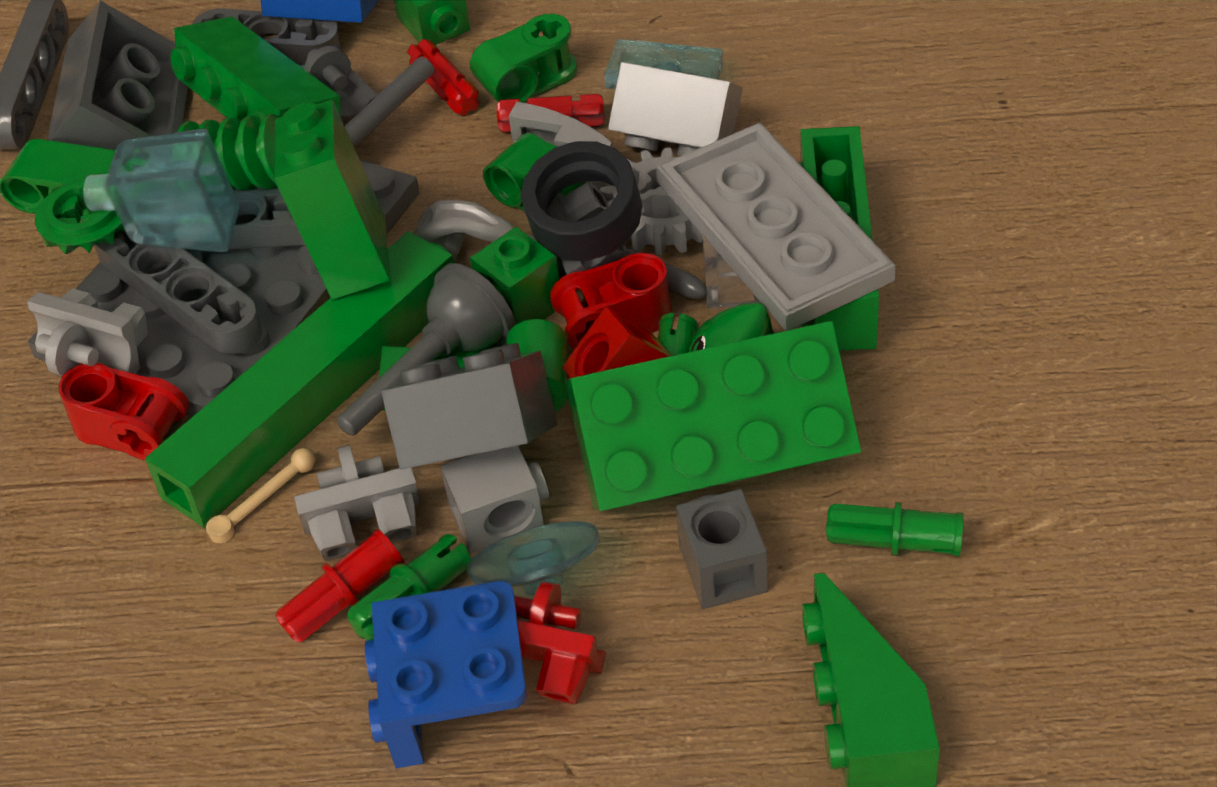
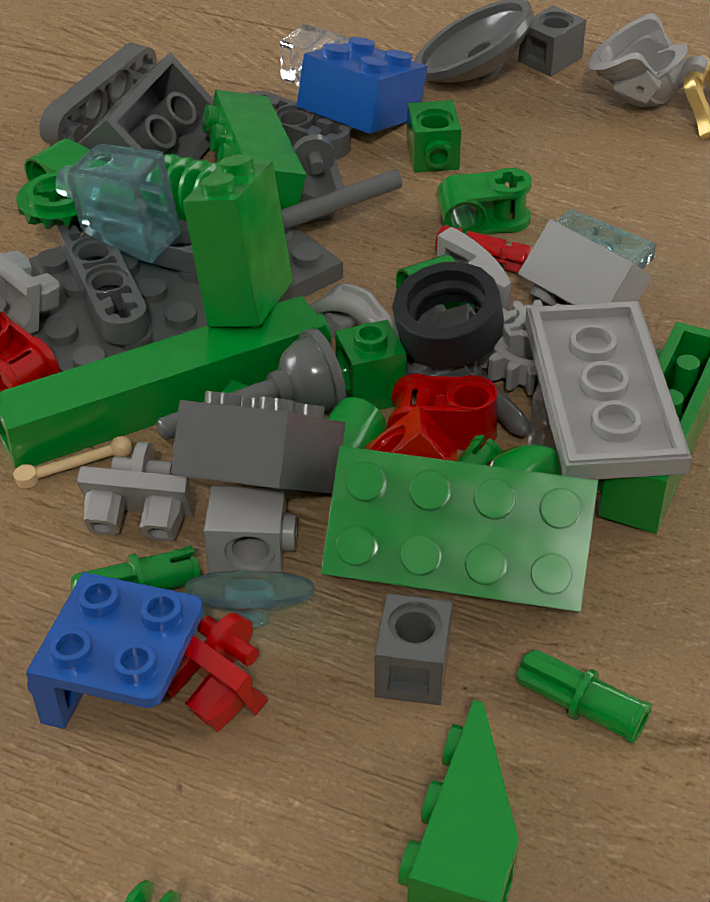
camera: 20 degrees right, 5 degrees down
(338, 586) = (80, 554): red axle -> none
(447, 79) = (414, 197): red axle -> none

